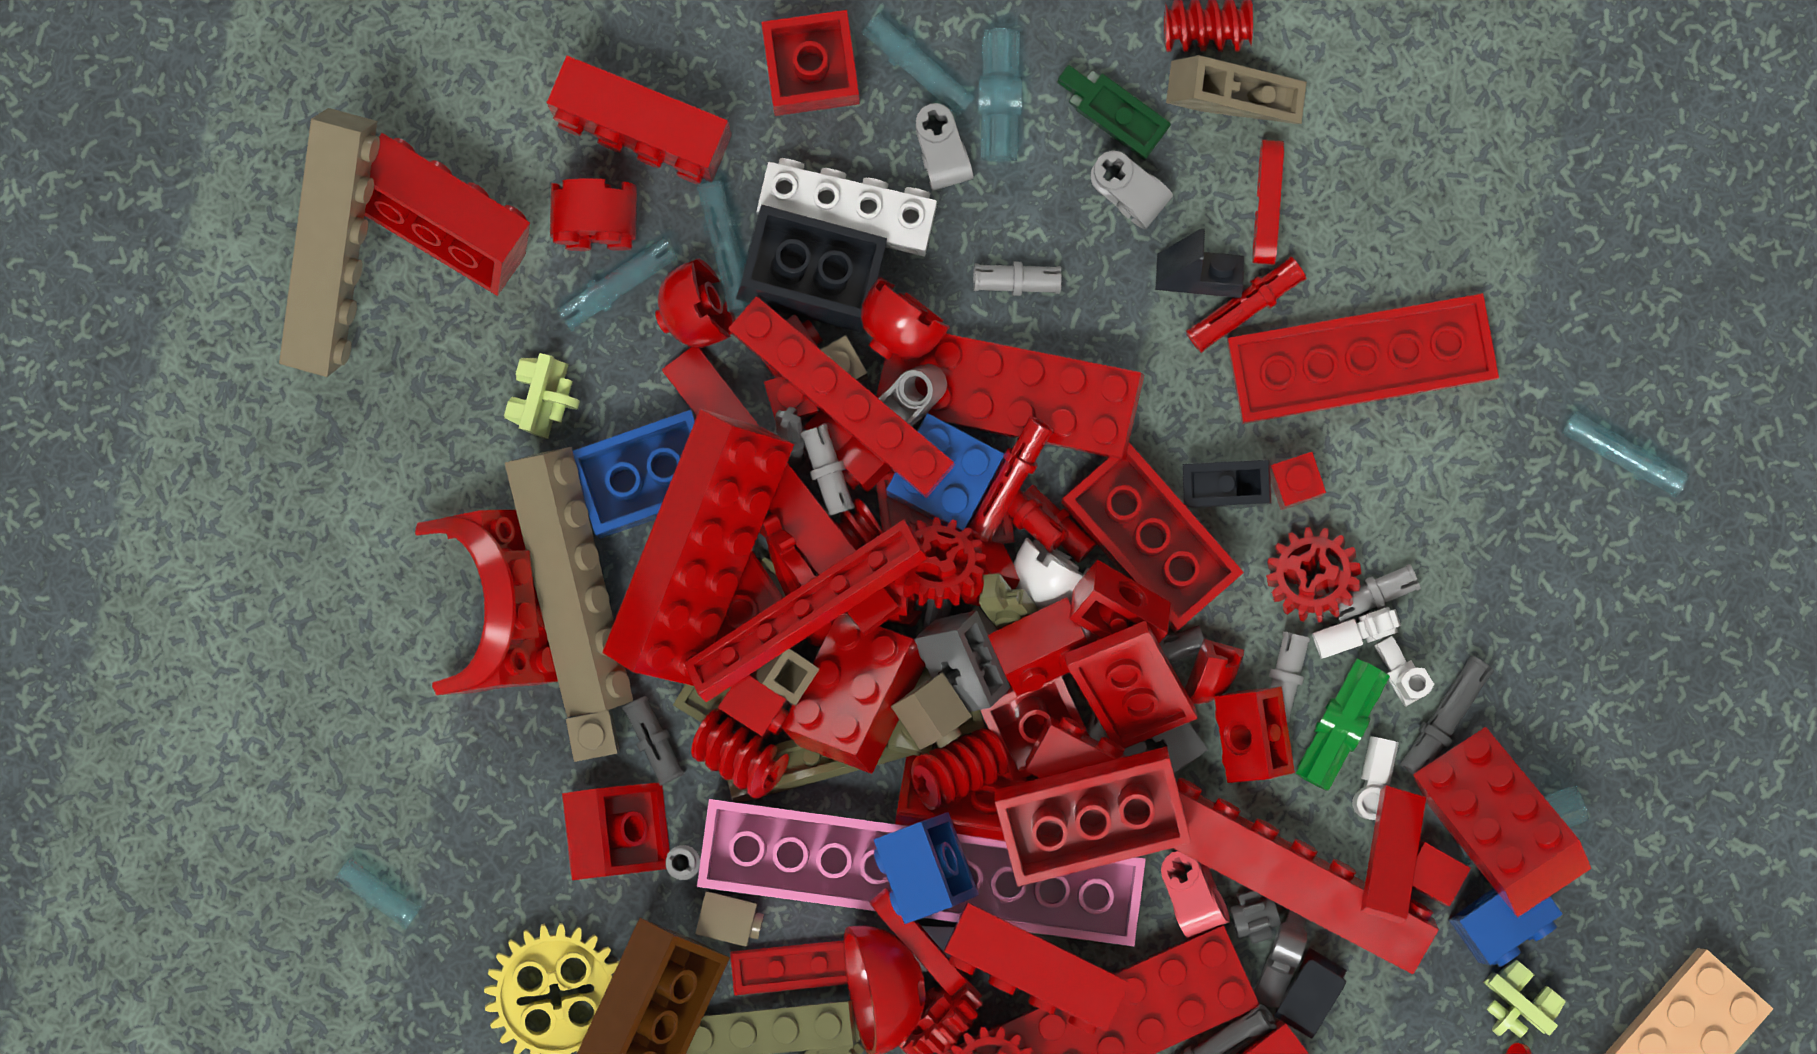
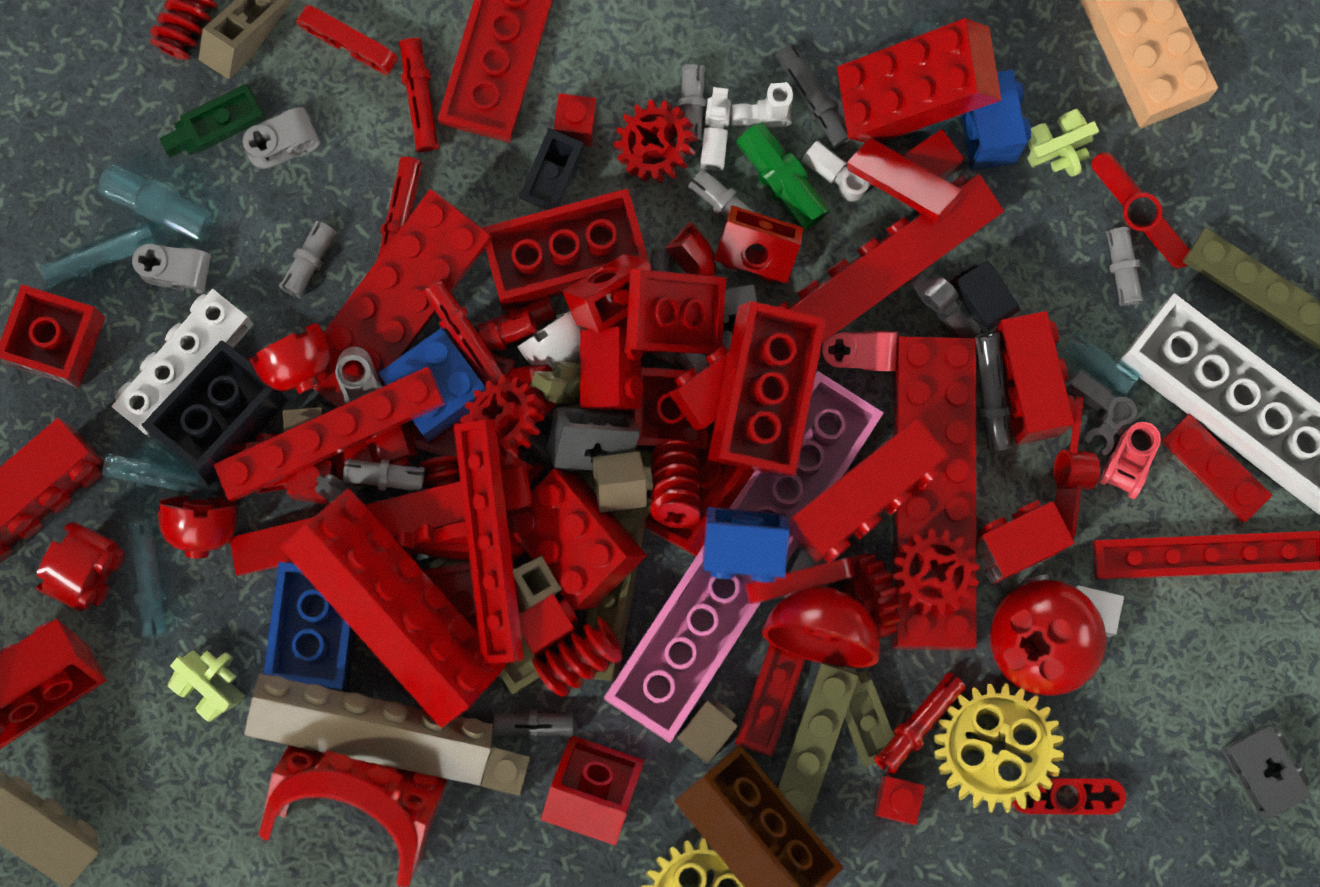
camera: 70 degrees left, 5 degrees down
(694, 862) = (645, 734): light grey pin -> none
(1119, 344) = (401, 199): none -> red pin
(1191, 270) = (369, 120): black slope -> none
(1254, 916) = (901, 312): dark grey gear -> none

